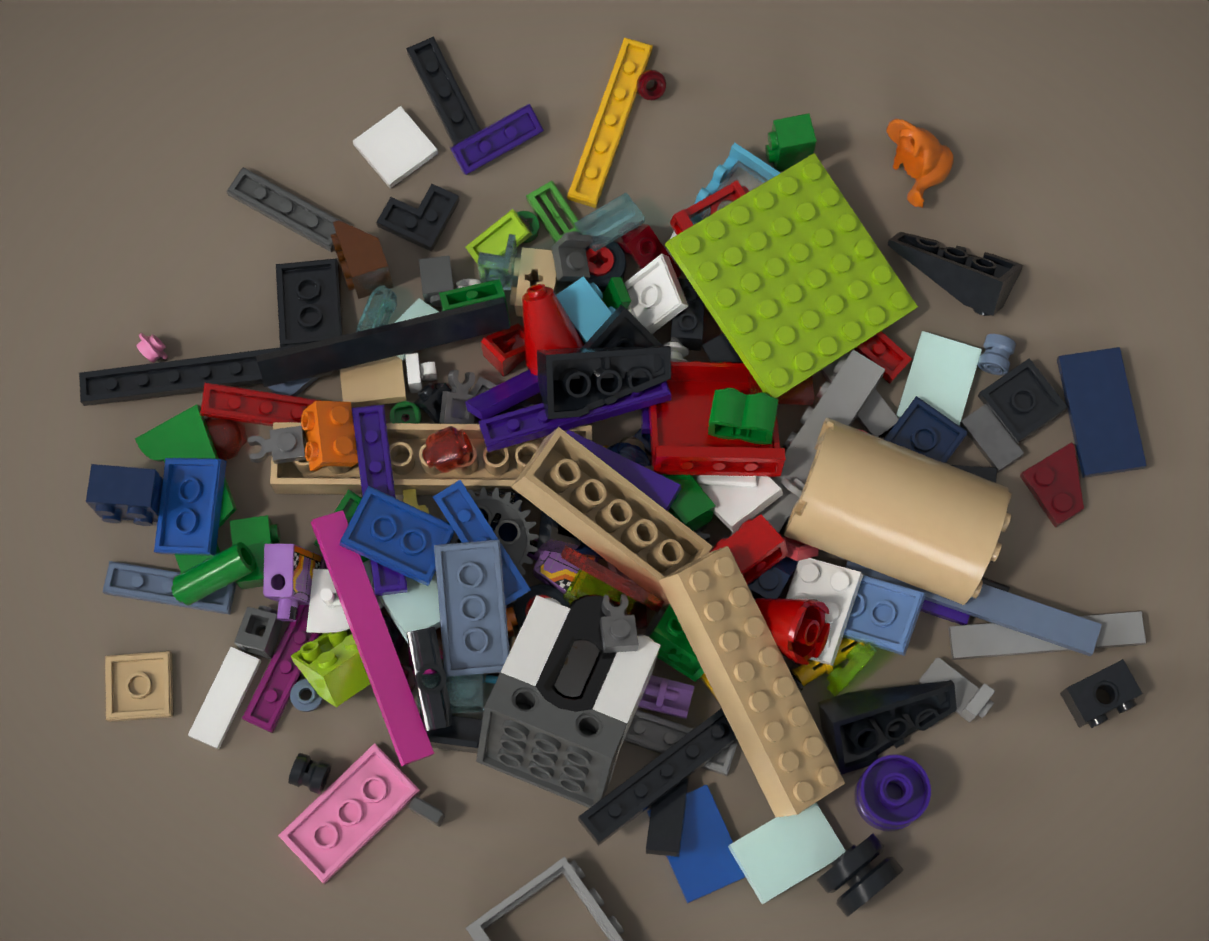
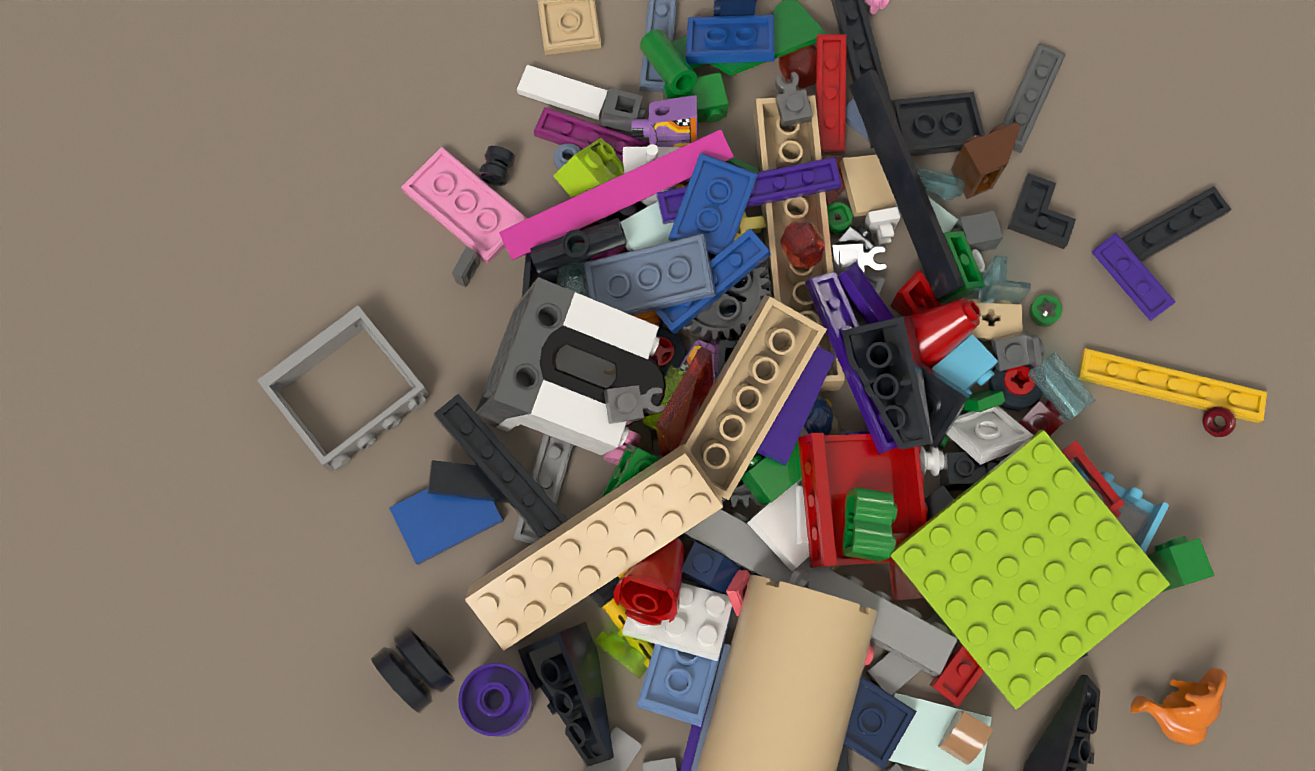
camera: 85 degrees right, 0 degrees up
(329, 434) = (806, 141): orange bracket -> none
(395, 147) = (1109, 186): white tile -> none
(495, 238) = (1041, 294): lime tile -> none
(540, 192) = (1085, 324): bright green tile -> none
(667, 697) = (583, 473): medium lavender hips -> none
(755, 547) = (728, 540): red brick -> none
(786, 851) = (435, 597): light aqua tile -> none
(941, 355) = (965, 737): none -> medium nougat brick

